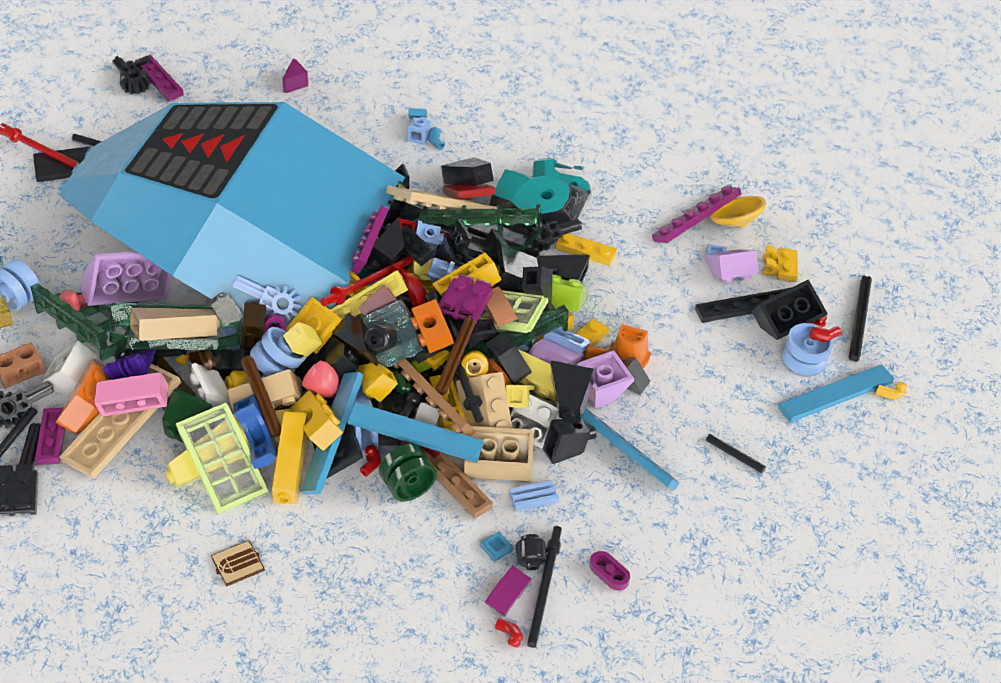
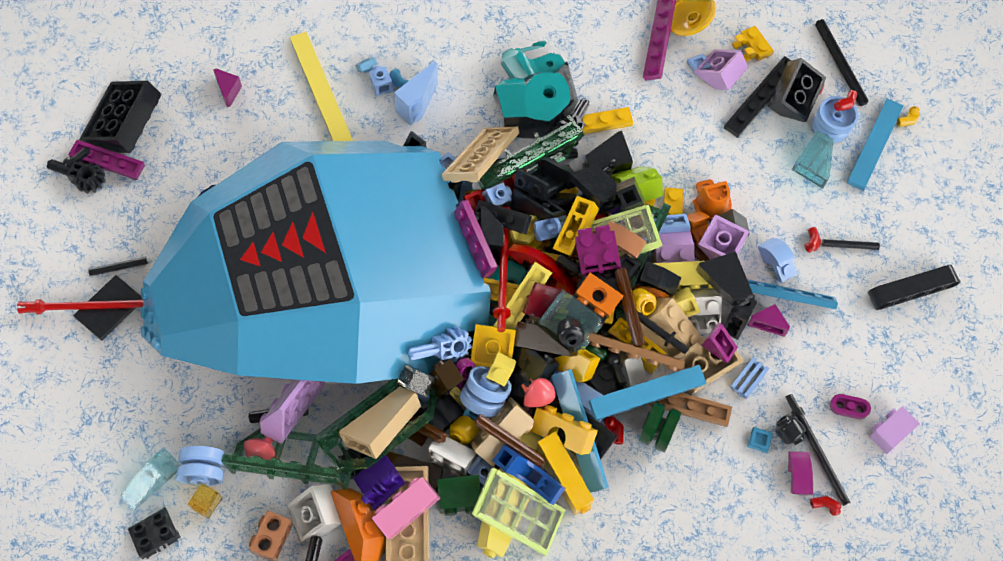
camera: 35 degrees left, 20 degrees up
(200, 57) = (121, 115): none -> black slope
(369, 108) = (320, 88): none -> light yellow tile
(439, 147) = (415, 95): none -> light blue slope
(467, 172) = (463, 103): black slope -> none
(468, 191) = (479, 123): red tile -> none
(518, 433) = (720, 343): none -> magenta slope
(592, 460) = (770, 320): none -> magenta slope
(636, 613) = (894, 429): none -> lavender brick
(648, 422) = (780, 257): none -> light blue brick
(699, 431) = (815, 240): none -> red arm
(760, 370) = (816, 159): none -> clear light blue slope
(768, 517) = (913, 287): none -> black beam

